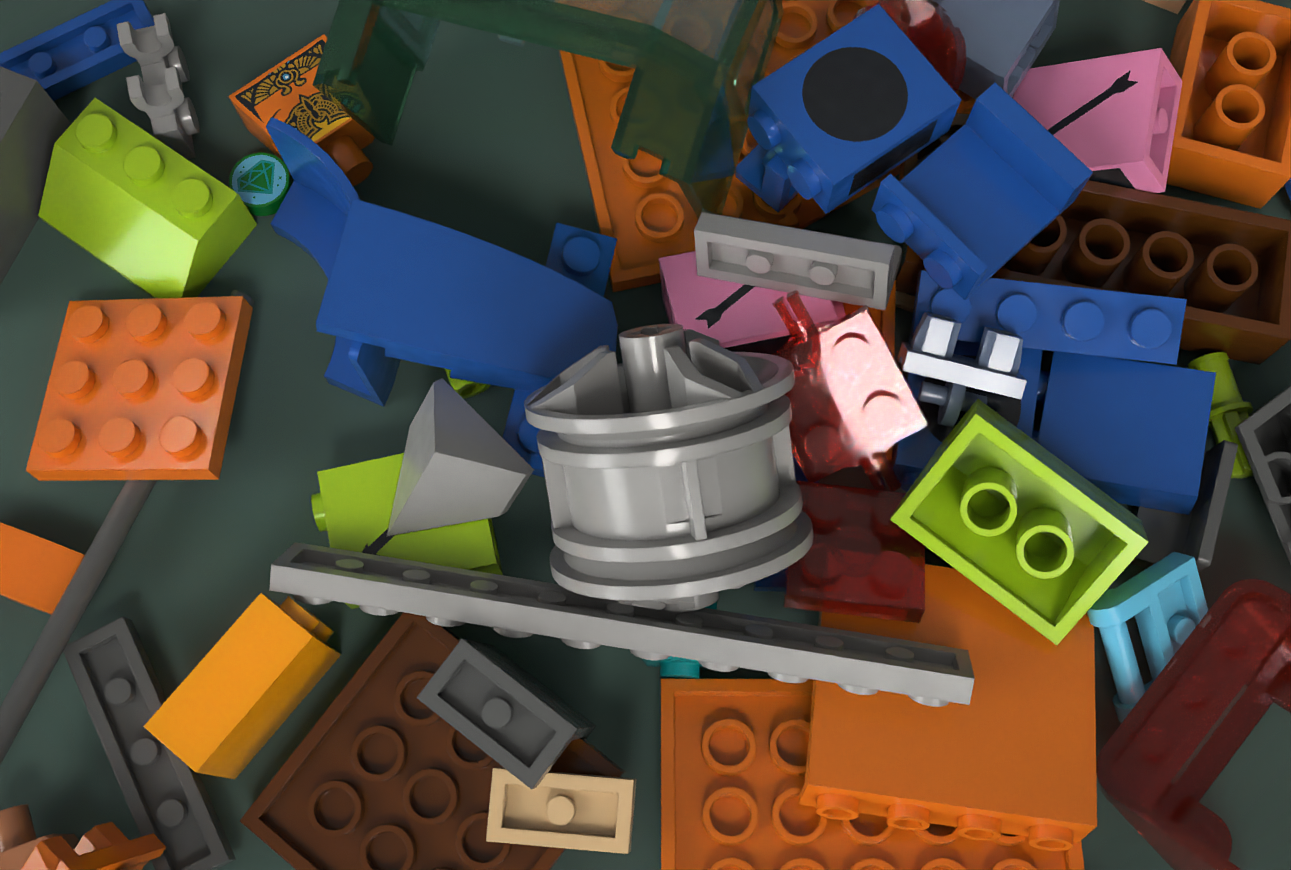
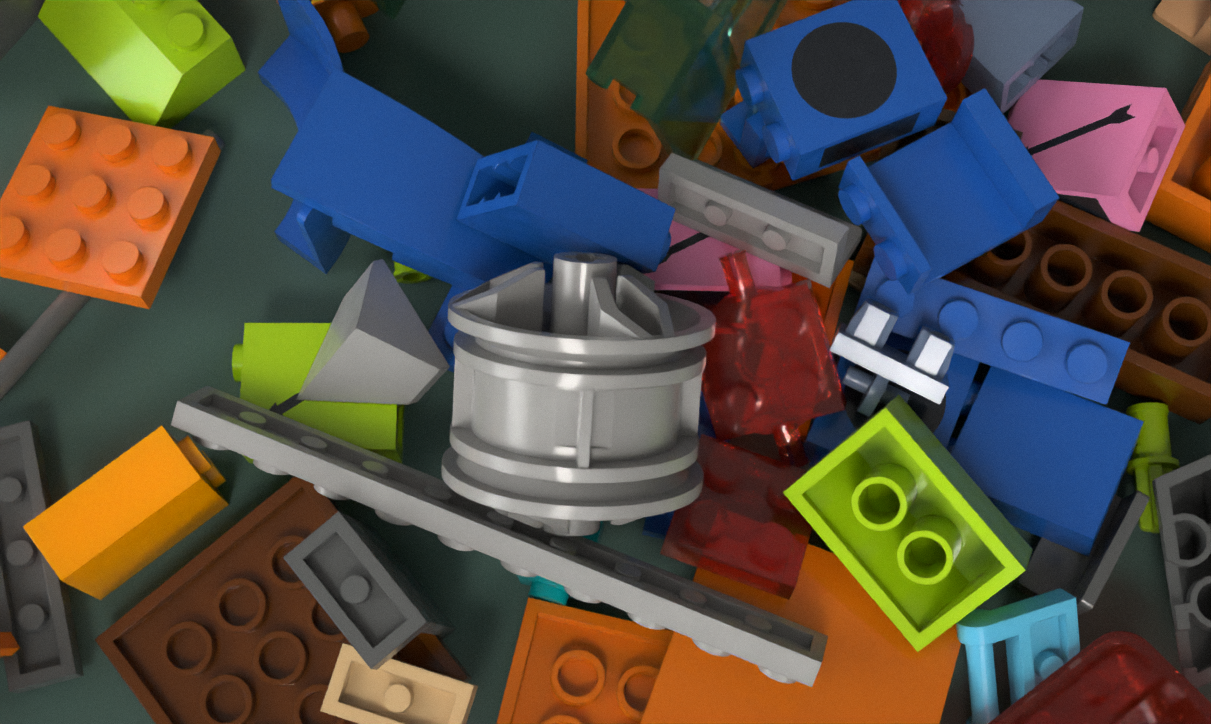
camera: 10 degrees right, 0 degrees up
(261, 182) = (257, 30): tile -> none
(605, 283) = (560, 204): none -> blue brick

